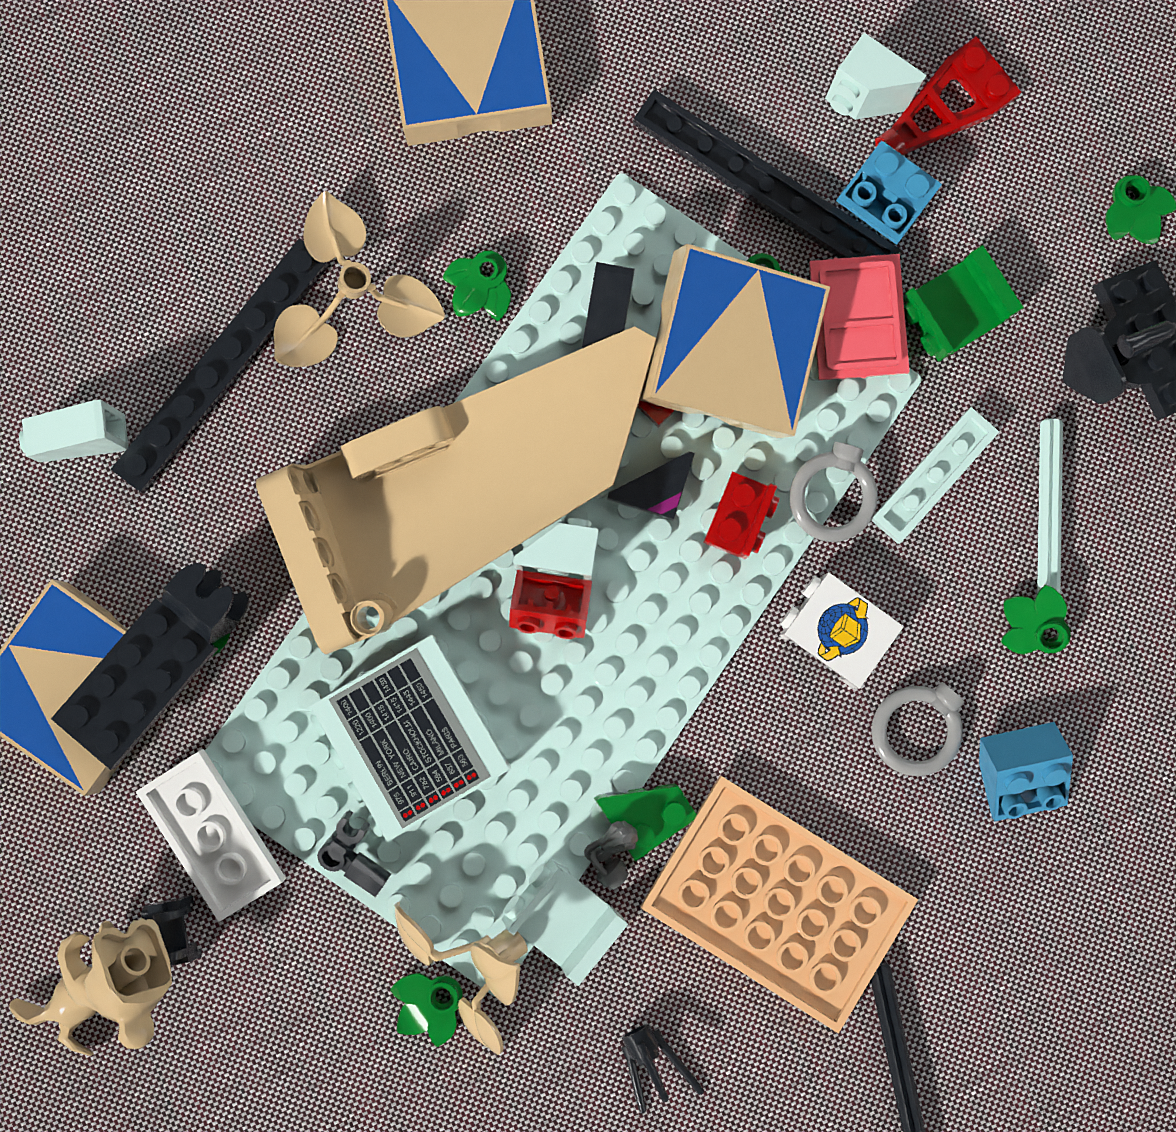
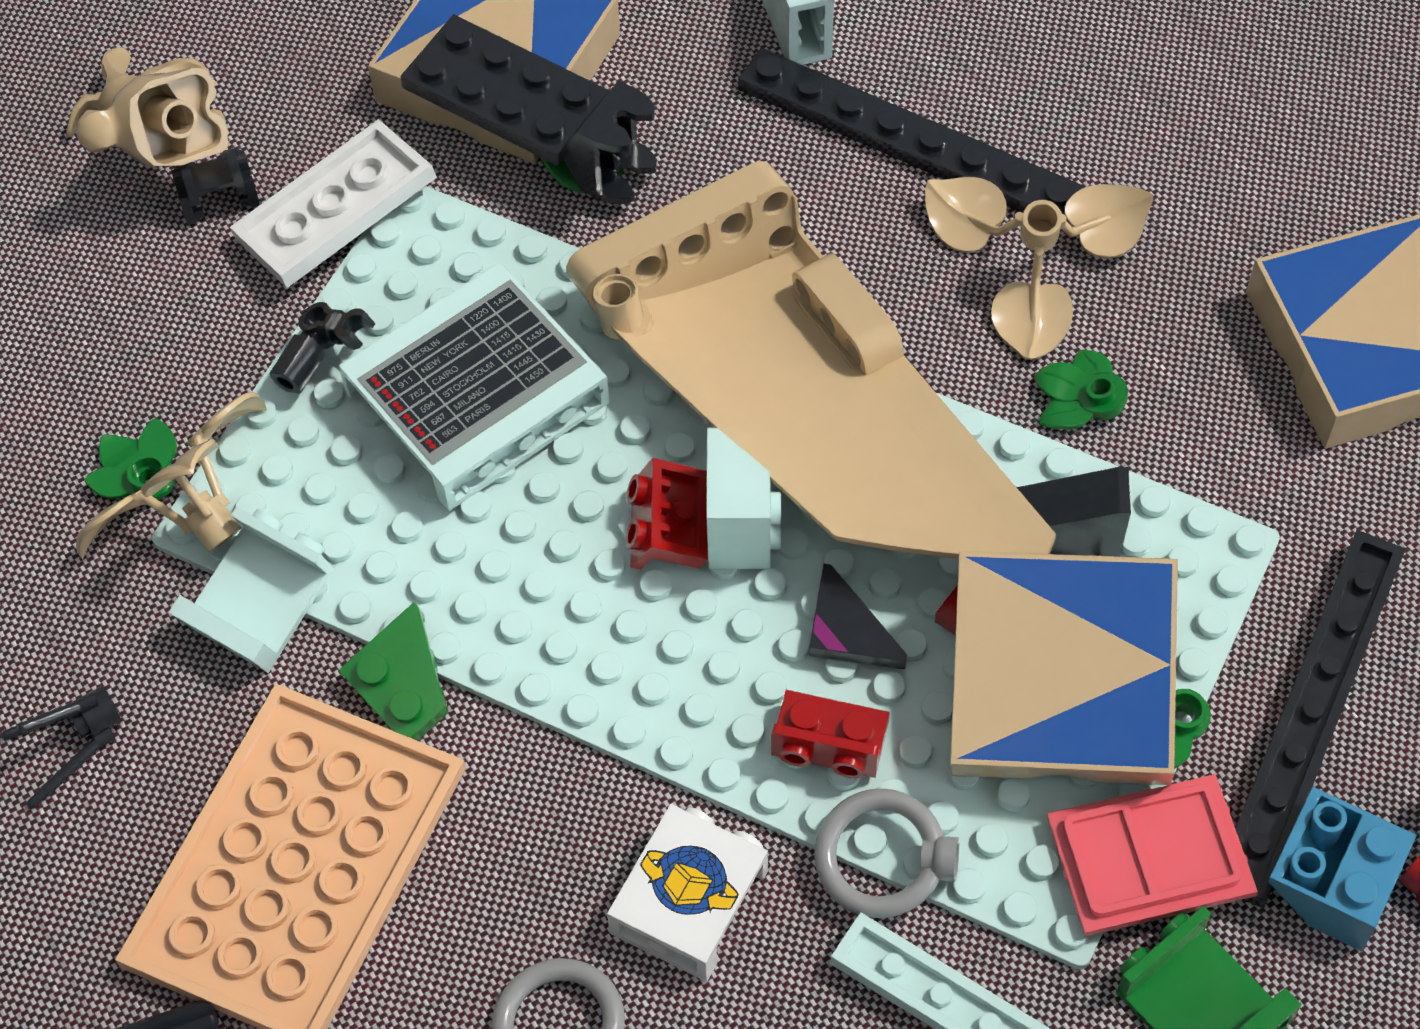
camera: 90 degrees right, 25 degrees down
(617, 838) = (363, 632): dark grey piece -> none

